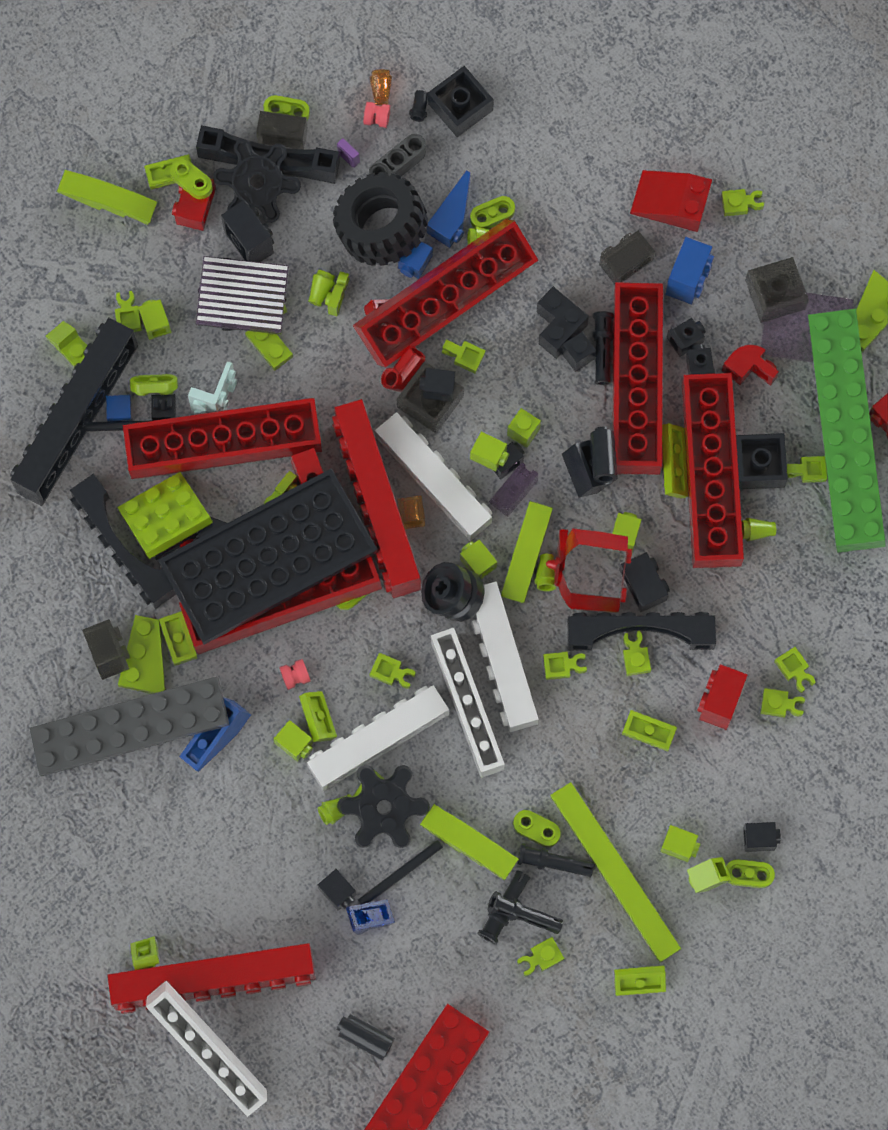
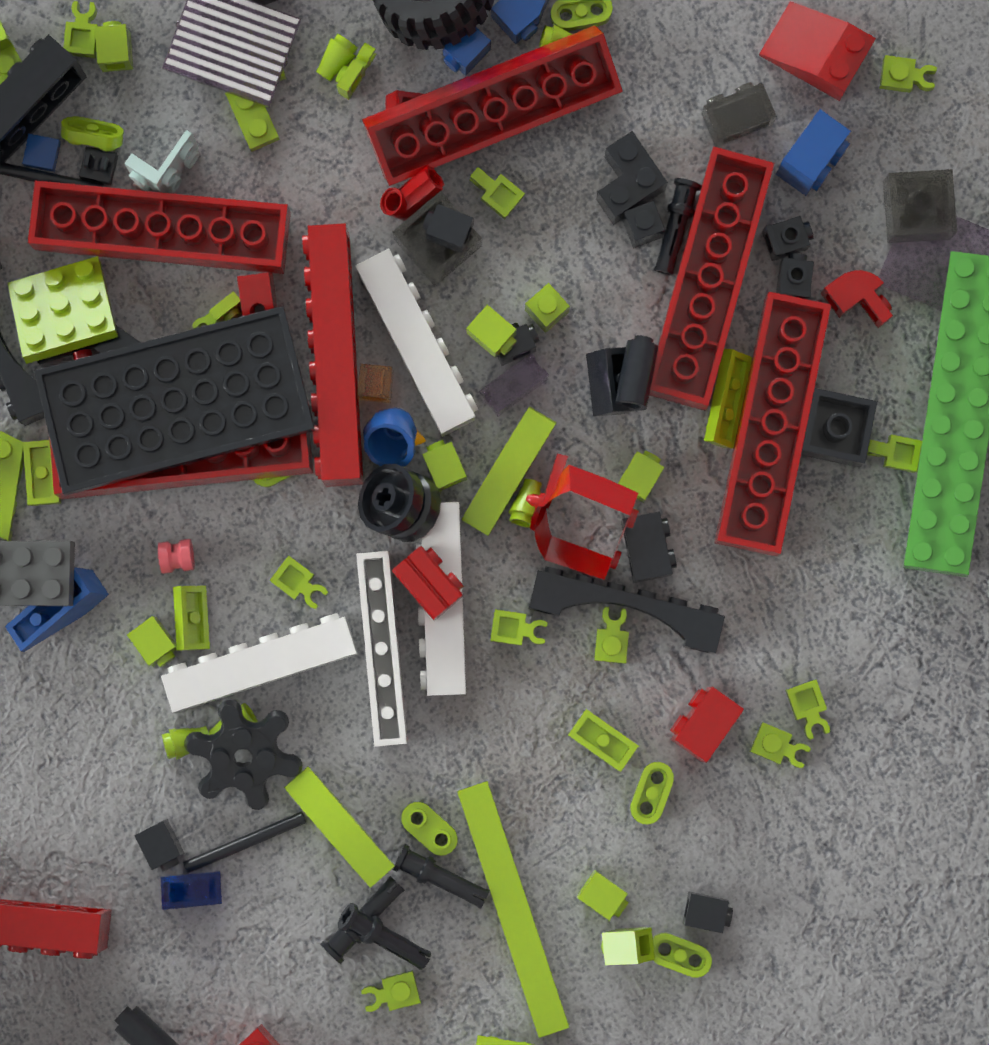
camera: 15 degrees right, 10 degrees up
(433, 546) = (390, 436): none -> blue piece
(490, 642) = (428, 582): none -> red brick
(696, 760) = (653, 793): none -> lime plate
(756, 529) = (810, 514): lime cone -> none

